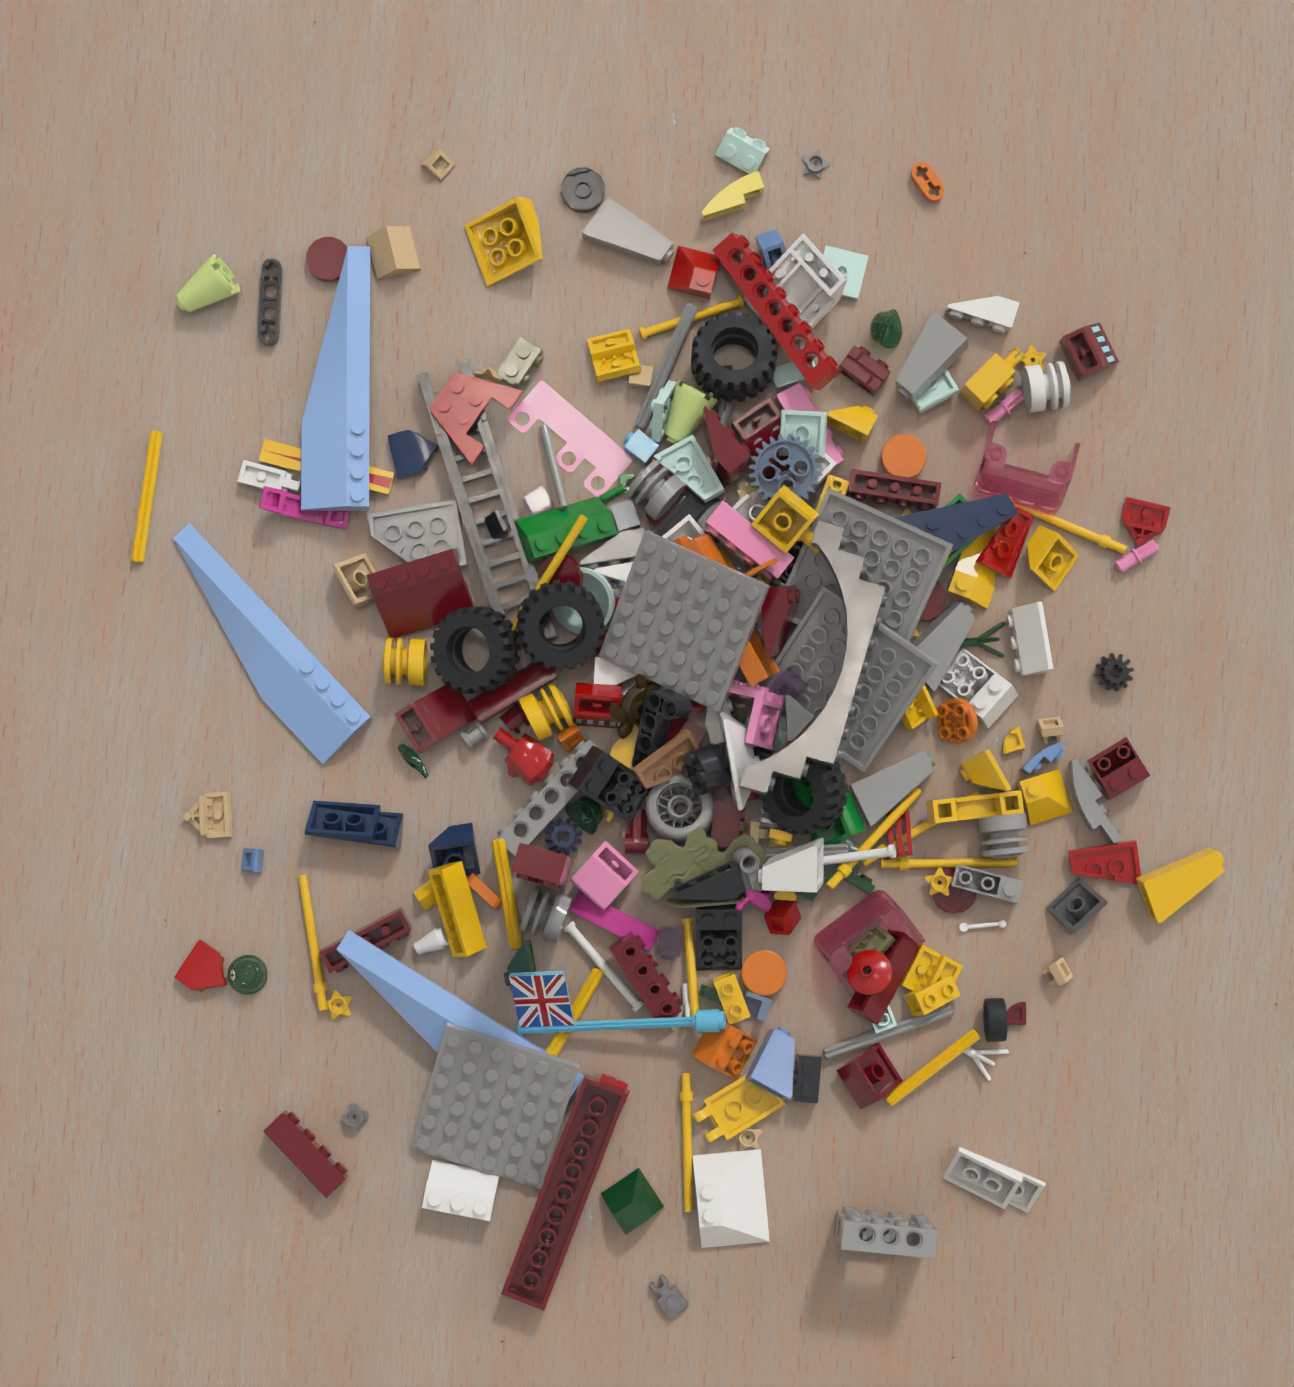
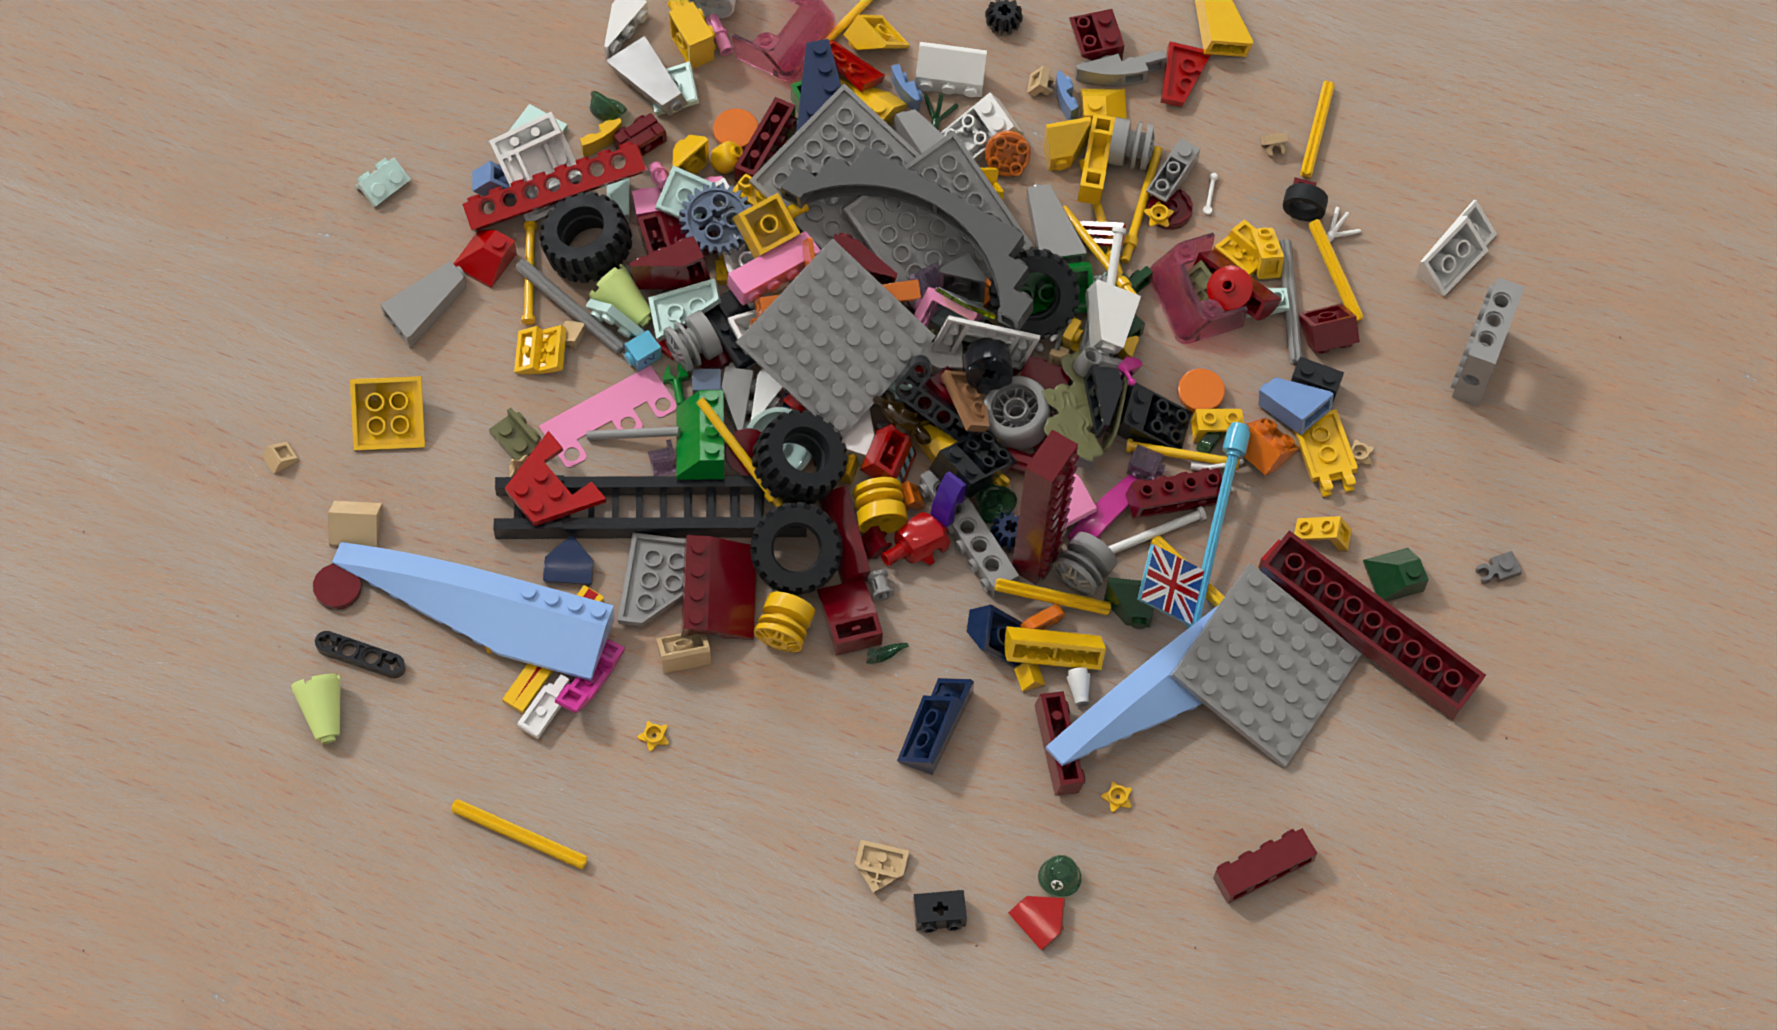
camera: 75 degrees left, 20 degrees down
(191, 888) = (949, 902): none -> black brick
(252, 860) = (940, 837): medium blue slope -> none
(267, 581) = (651, 729): none -> yellow plate
(276, 660) = (732, 753): light blue wedge -> none
(319, 986) = (1094, 807): yellow bar -> none
(348, 1117) = (1239, 804): flat silver plate -> none
(460, 1190) = (1343, 728): white slope -> none
(496, 524) = (673, 499): black slope -> none
(563, 772) = (948, 496): none -> dark purple slope
(583, 189) = (362, 333): tile -> none
(583, 672) = (851, 469): none -> yellow slope
(652, 1123) = (1324, 528): none -> yellow bracket
(686, 1097) = (1304, 496): yellow bar -> none
(731, 1198) = (1416, 484): white slope -> none
(733, 196) = (424, 199): light yellow slope -> none
(757, 1005) = (1234, 400): sand blue panel -> none
(765, 729) = (966, 303): none -> clear neon green piece
(782, 917) = (1152, 357): red panel -> none
(815, 158) = (420, 120): flat silver plate -> none
(827, 401) = (658, 174): none -> bright pink axle
(858, 338) = (596, 142): none -> yellow slope
(867, 457) = (725, 157): none -> yellow head
(923, 185) = (477, 36): orange beam -> none
(997, 607) = (905, 89): none -> medium blue slope
(1013, 741) = (1040, 117): yellow tile -> none
(1076, 906) = (1217, 107): dark grey slope -> none
(1088, 1010) = (1317, 129): none -> yellow axle

